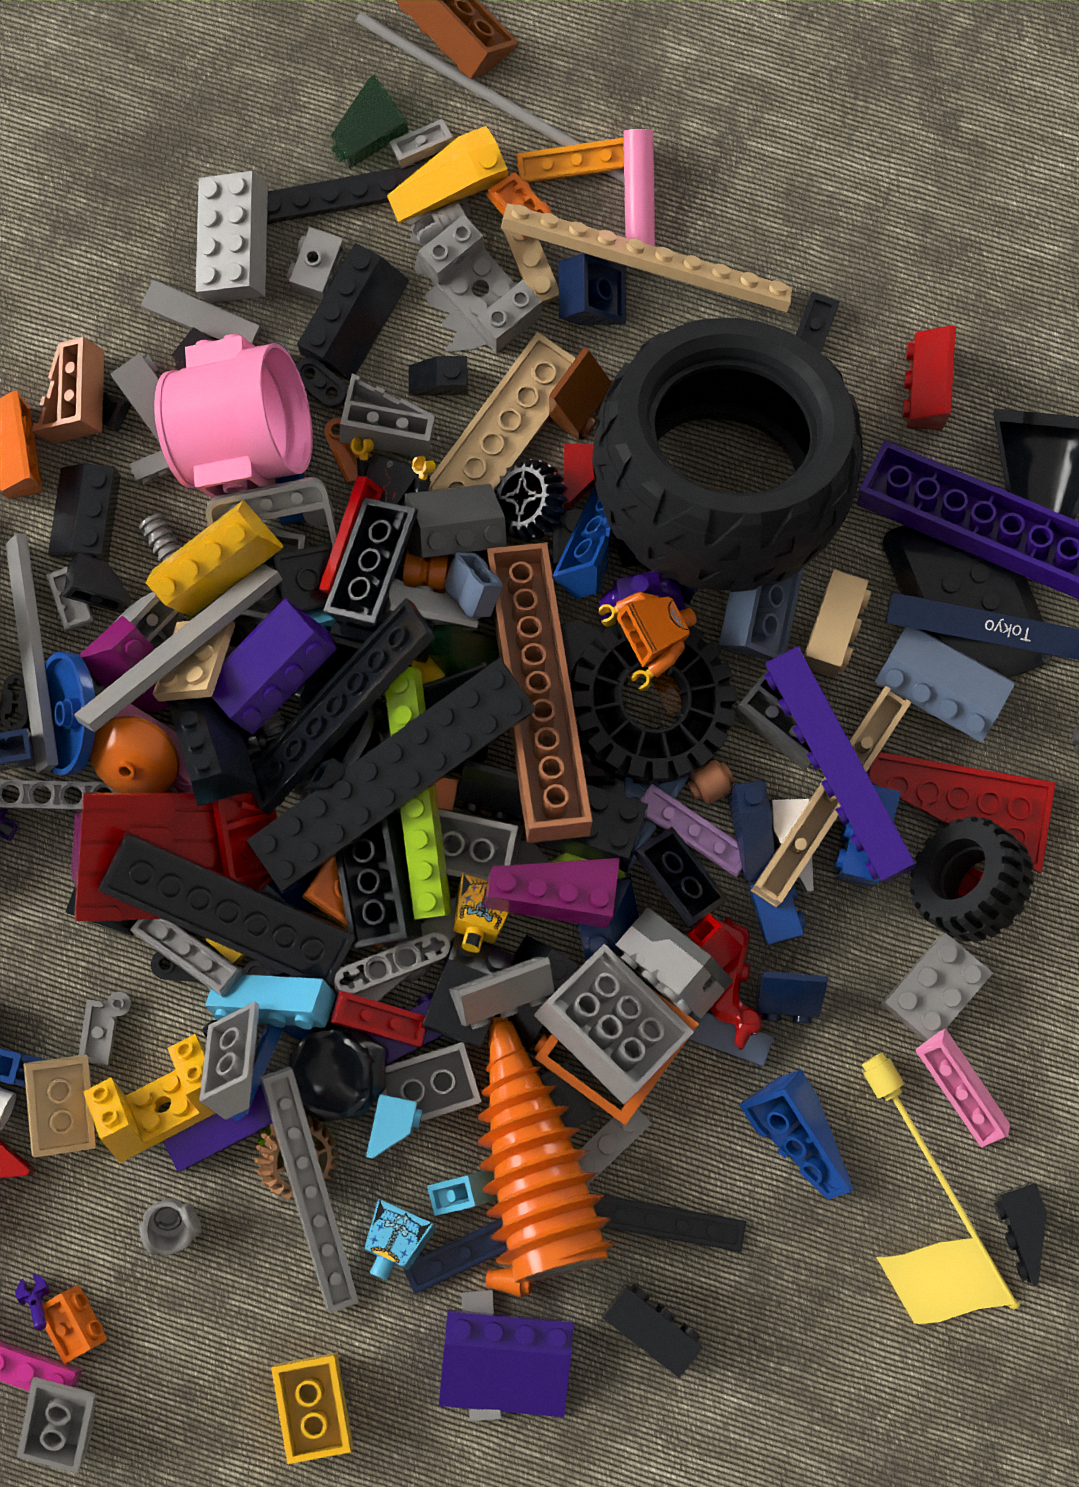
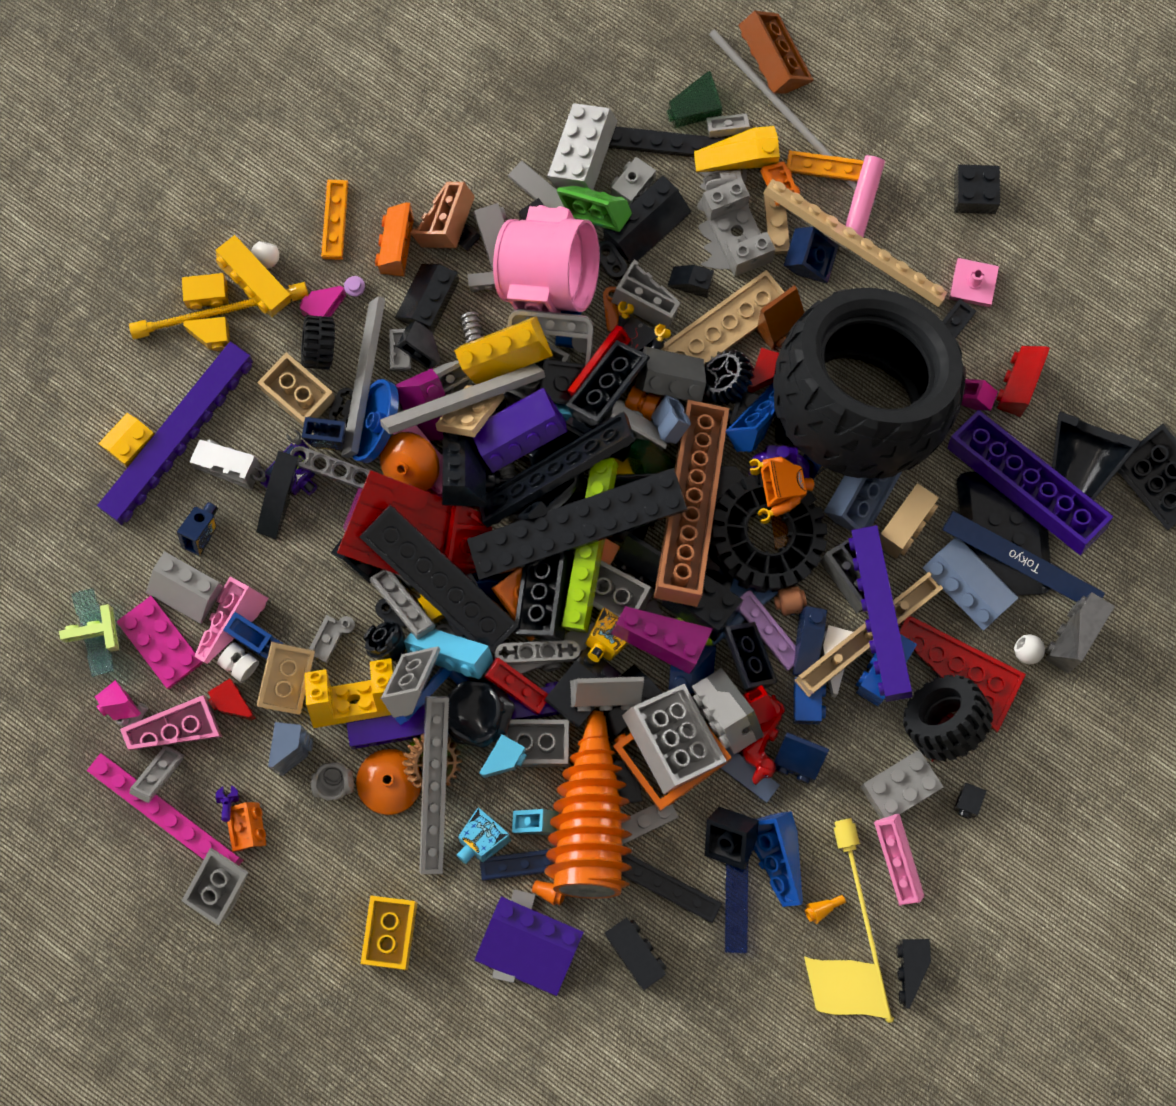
camera: 15 degrees right, 5 degrees down
(94, 1201) = (288, 747): none -> sand blue slope
(179, 1011) = (385, 640): none -> black cone
(230, 1221) = (382, 797): none -> orange dish
(275, 316) = (595, 206): none -> bright green slope
(730, 1130) = (730, 837): none -> black slope
(766, 1220) = (736, 910): none -> clear blue tile
(789, 130) = (977, 189): none -> black brick
(824, 262) = (974, 282): none -> bright pink tile
(877, 1189) = (819, 910): none -> light orange cone
(879, 418) = (978, 395): none -> dark pink slope
(1032, 978) = (969, 801): none -> black brick
(1050, 747) = (1029, 649): none -> white piece

